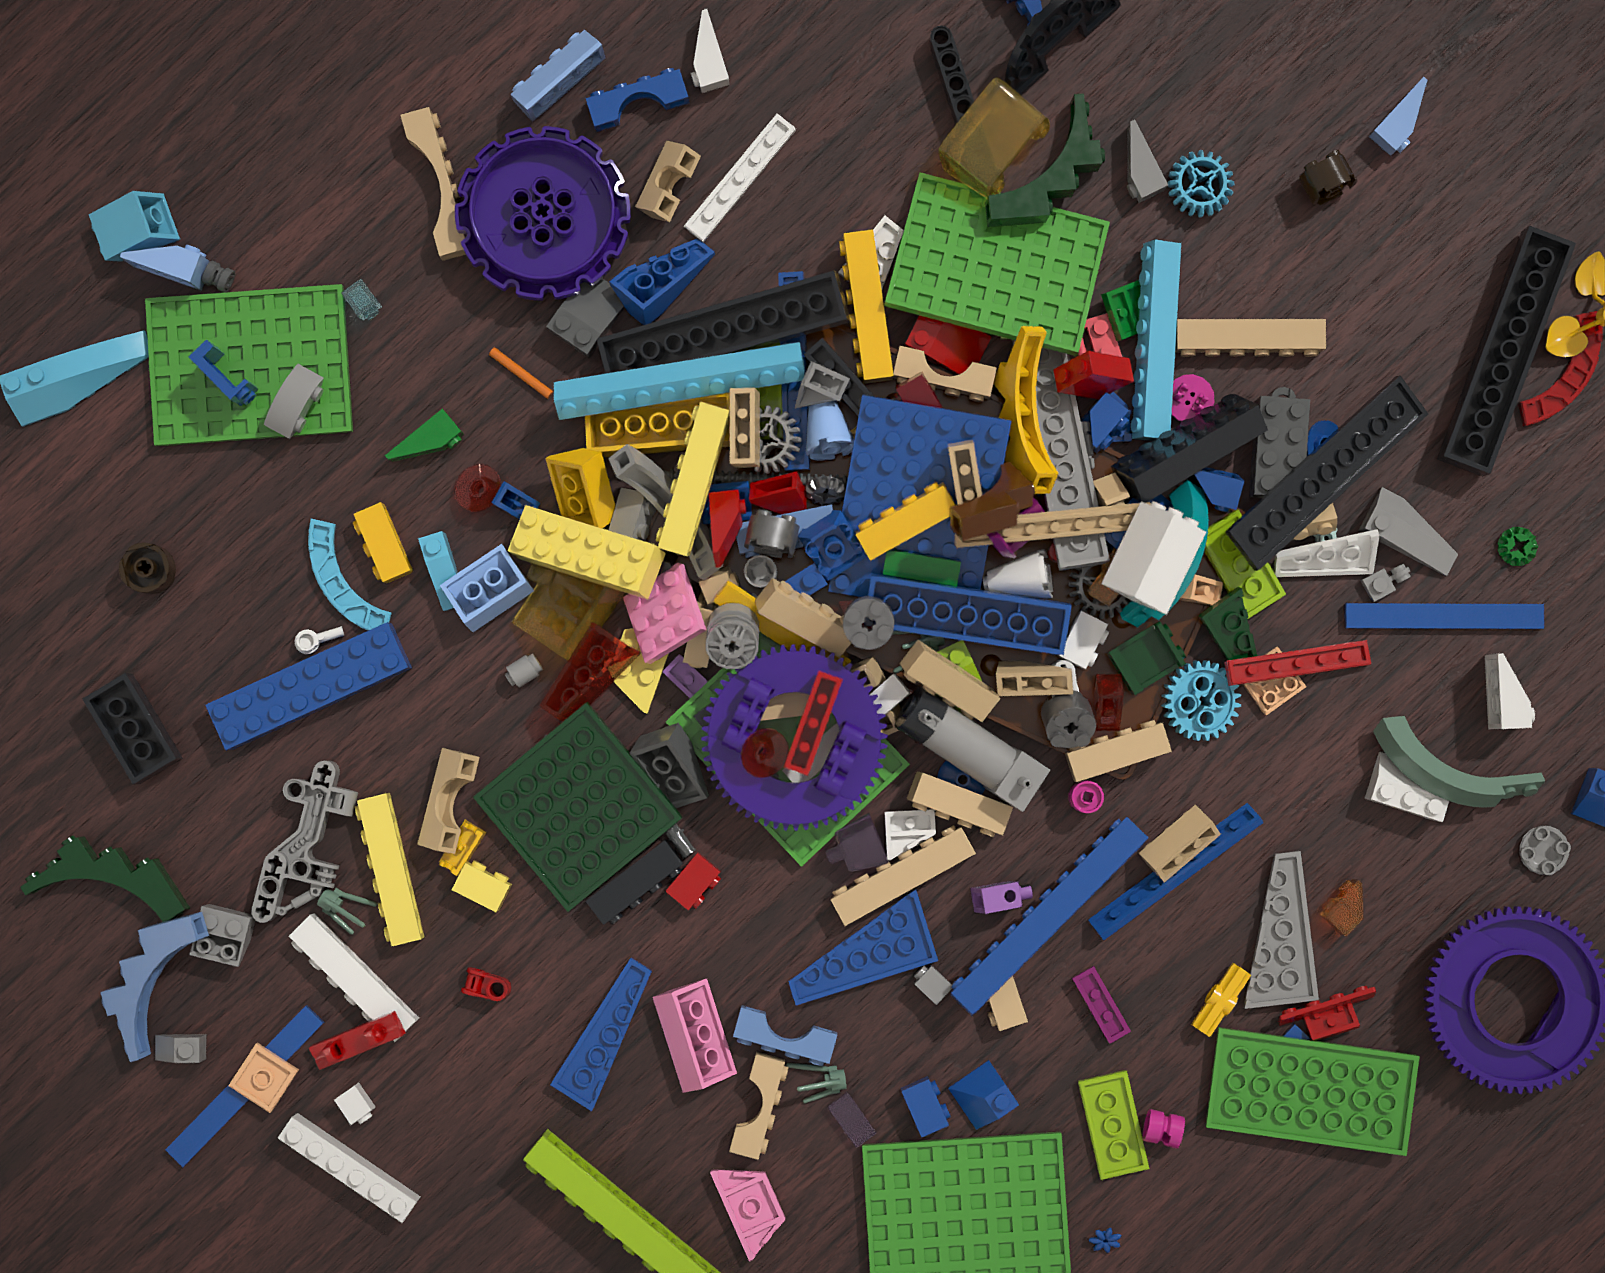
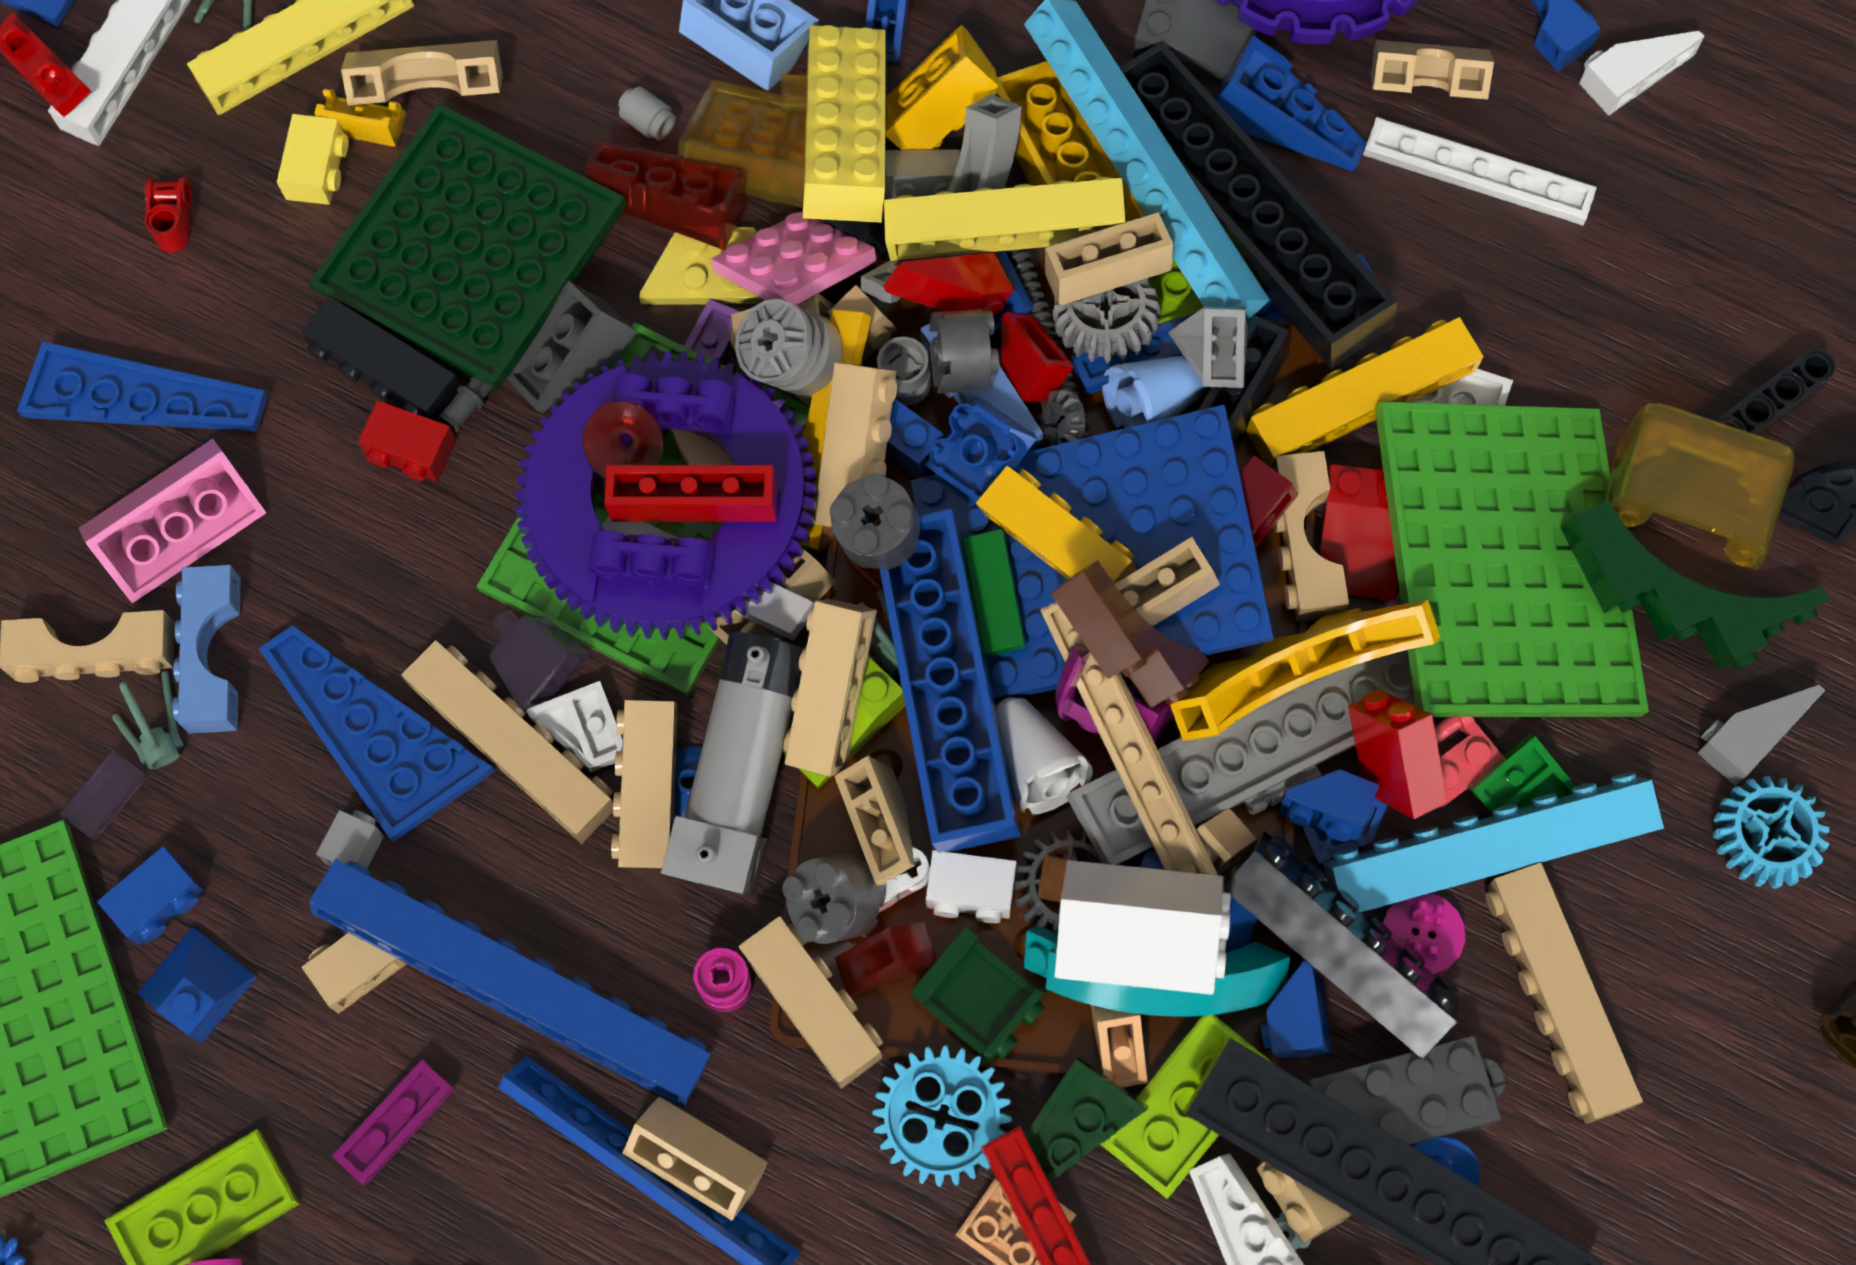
camera: 75 degrees right, 15 degrees down
(991, 897) = (511, 881): medium lavender torso -> none

